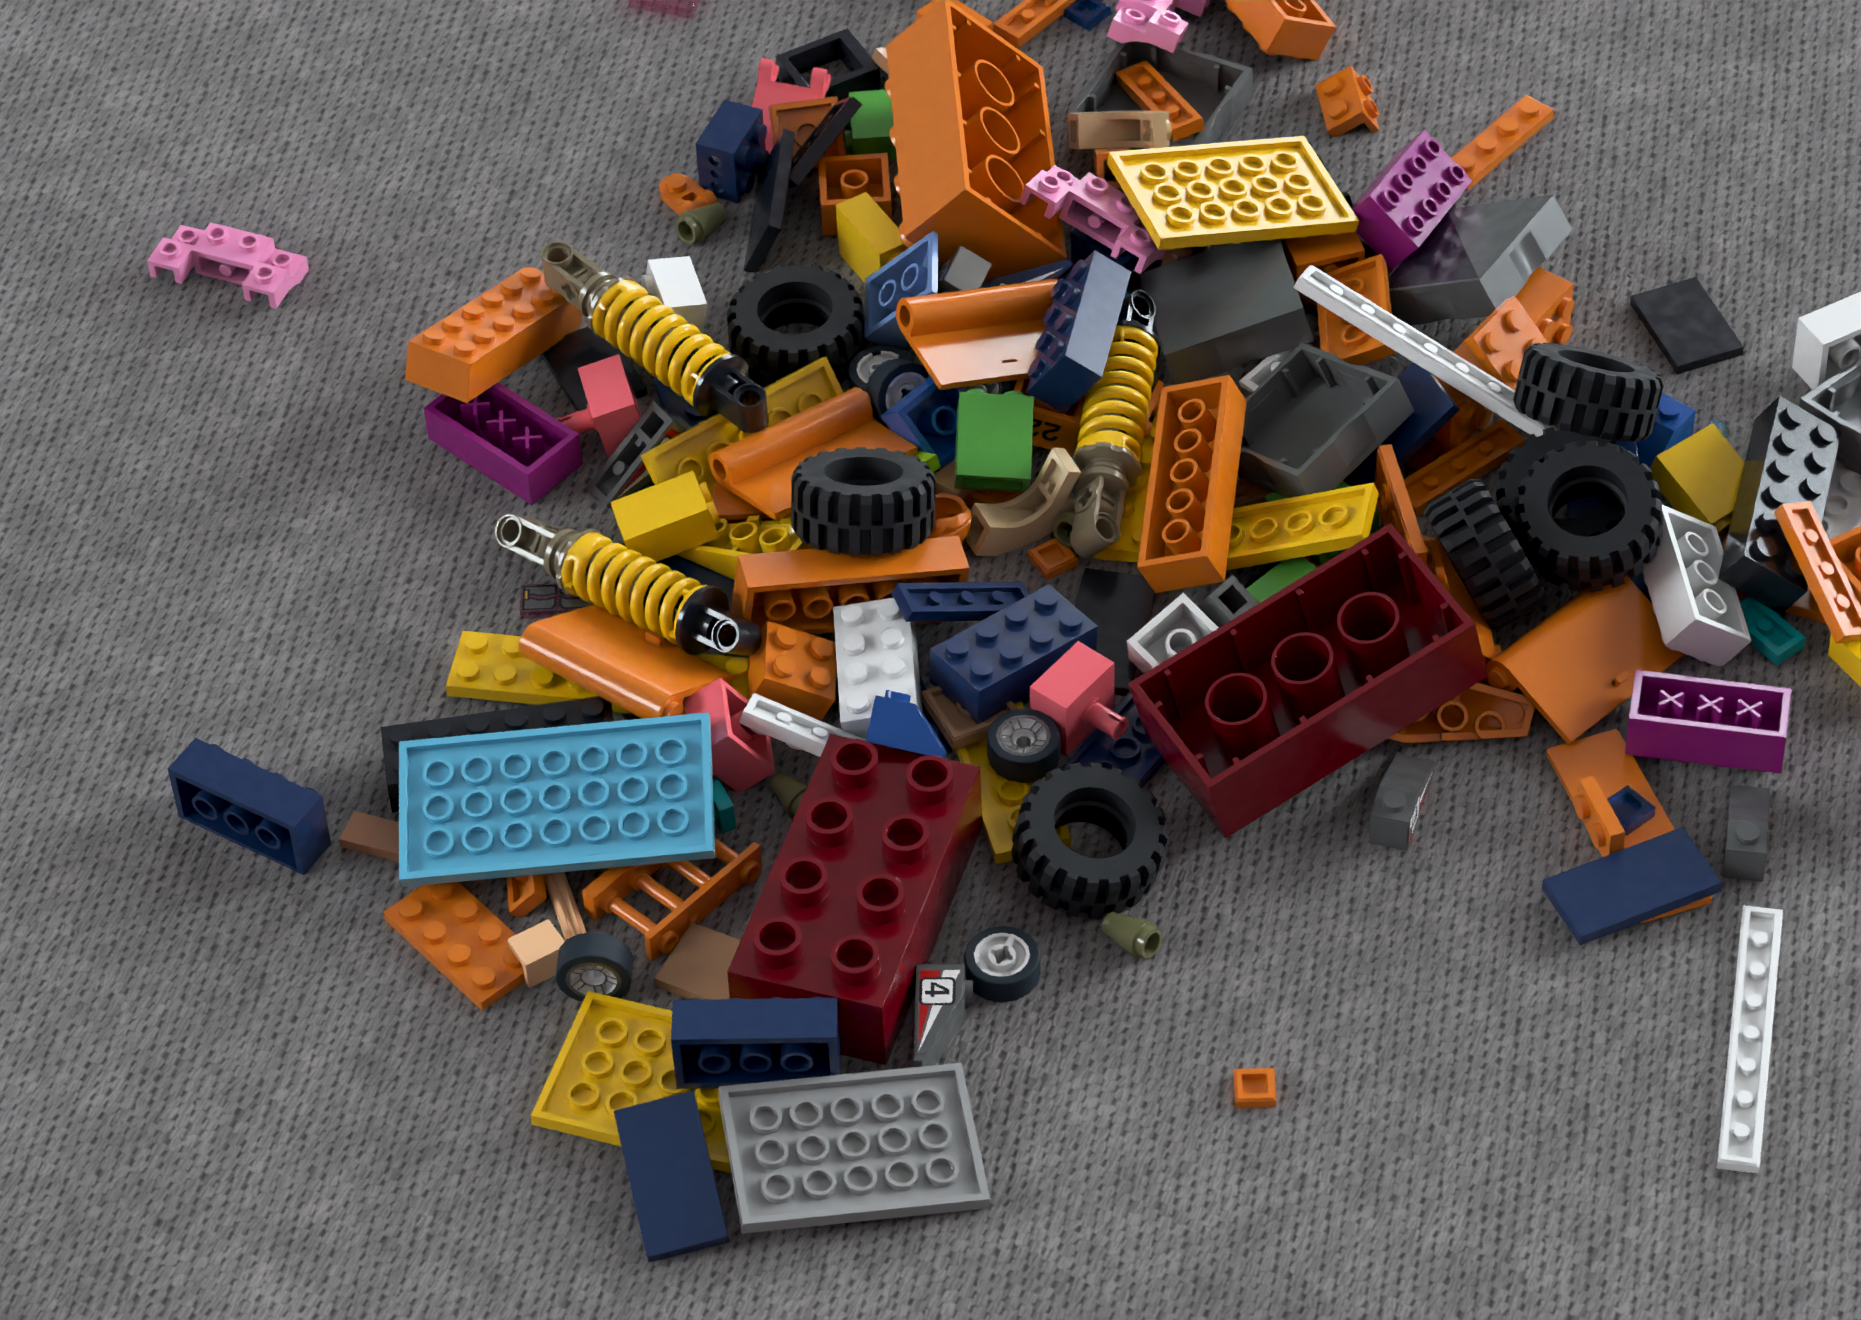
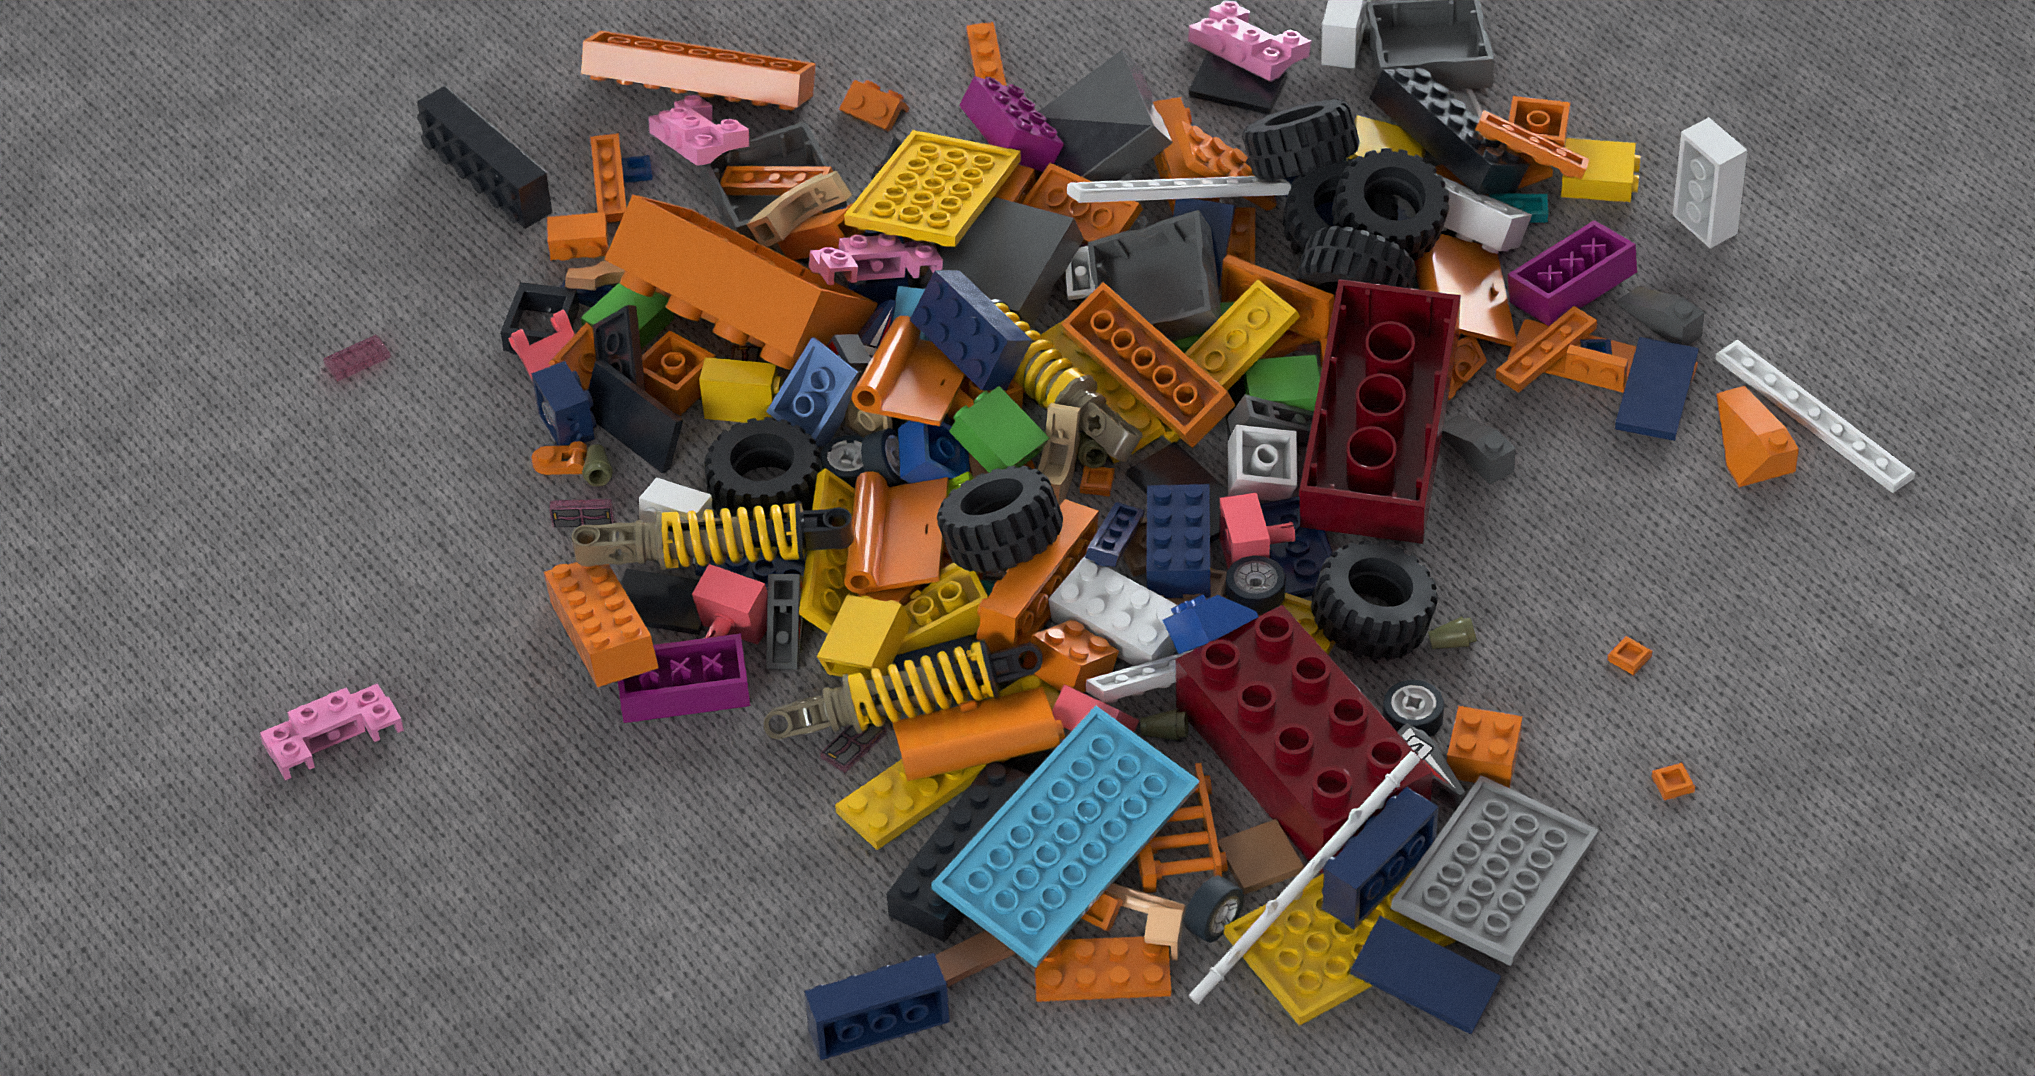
camera: 50 degrees left, 0 degrees up
(628, 245) = (581, 512): none -> tile
(657, 1004) = (1295, 888): none -> white plant
(1004, 1044) = (1484, 745): none -> orange brick
(1123, 1222) = (1673, 781): none -> orange tile
(1568, 764) = (1545, 349): none -> orange plate
(1655, 1009) = (1754, 439): none -> orange wedge
(1732, 292) = (1235, 40): none -> bright pink bracket

